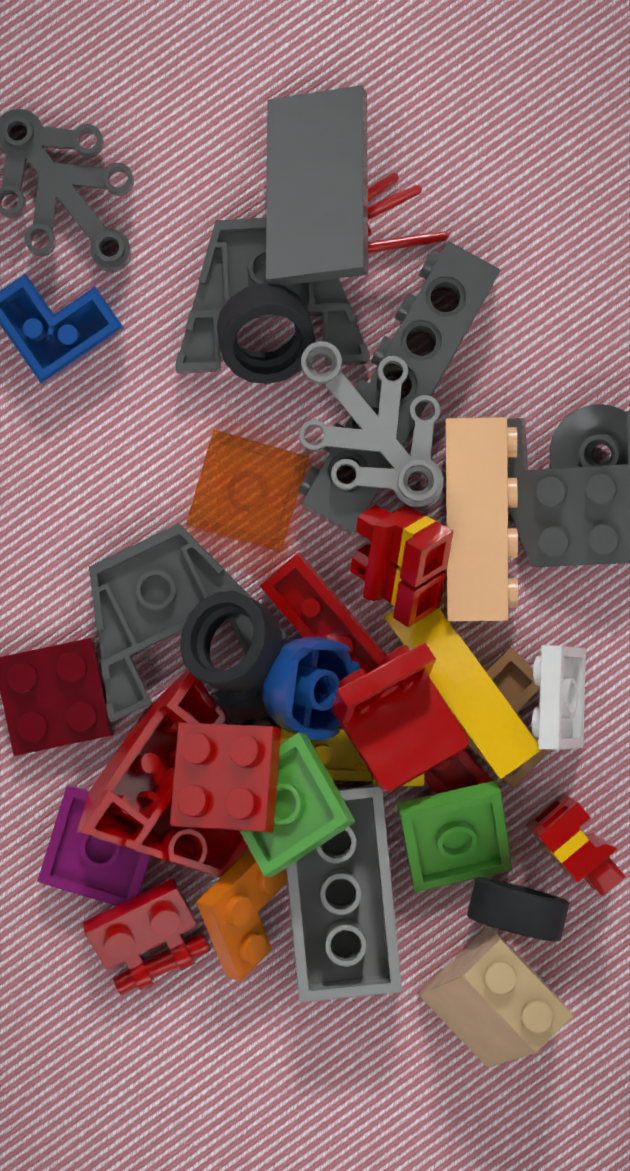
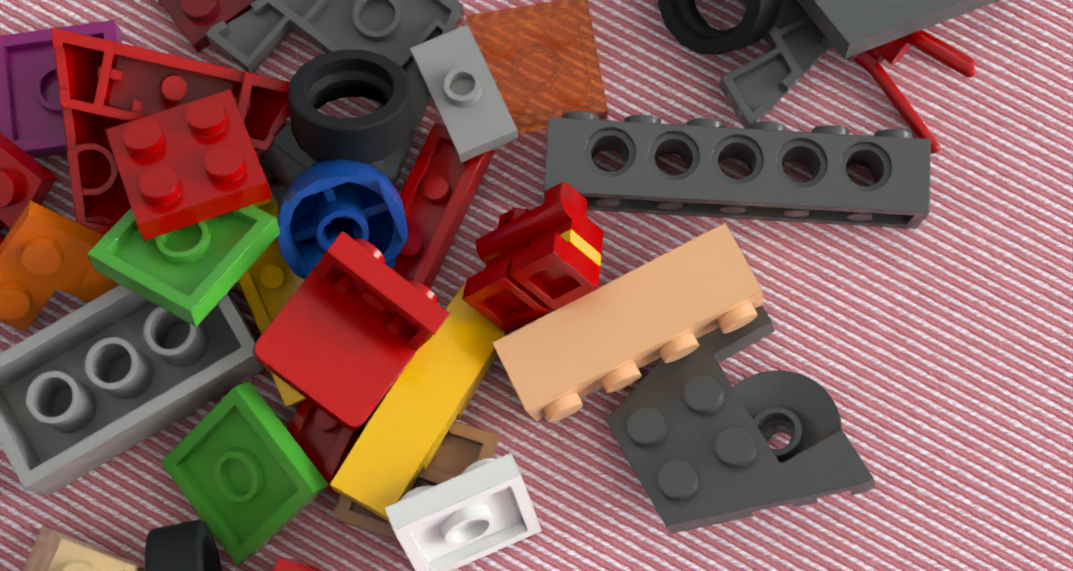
camera: 70 degrees right, 10 degrees down
(252, 554) = (464, 93): none -> light grey plate
(376, 432) = (670, 156): light grey plant -> none

